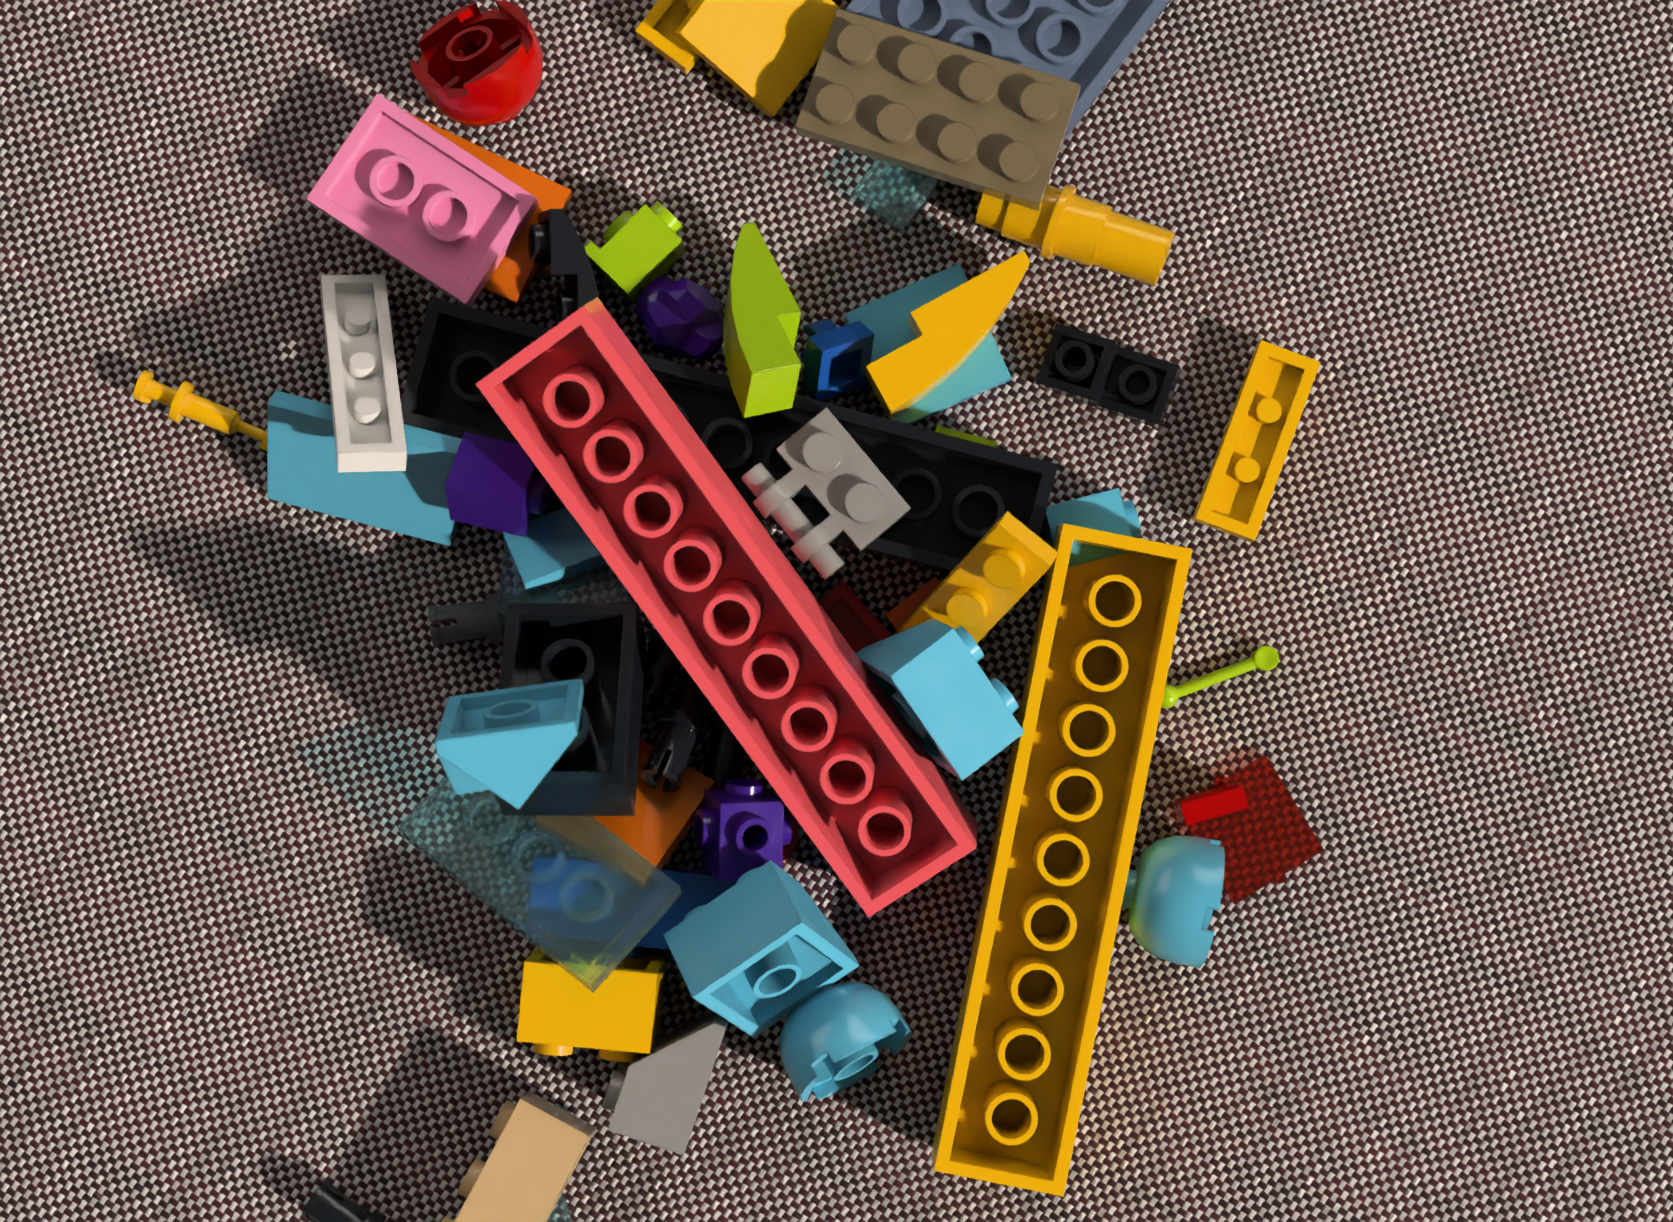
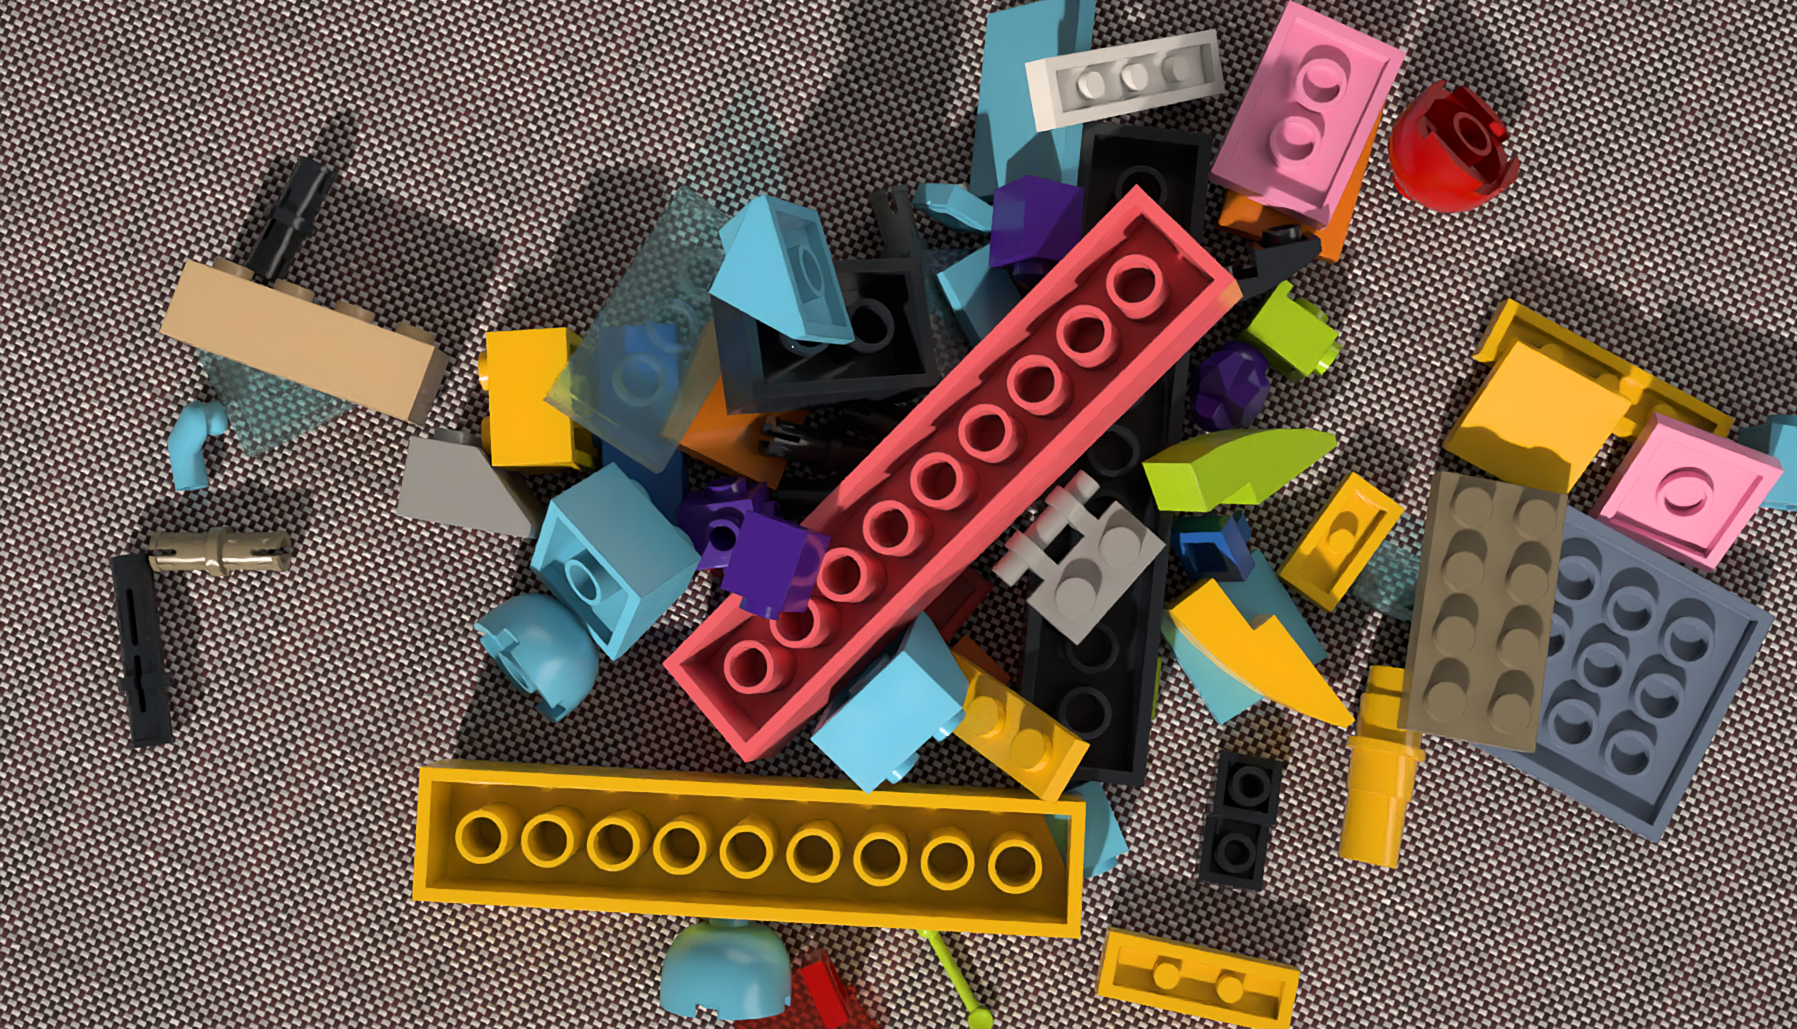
camera: 80 degrees right, 0 degrees up
(459, 562) = (954, 207): none -> medium azure tile
(788, 789) = (774, 565): none -> dark purple brick
(849, 234) = (1339, 542): none -> yellow plate

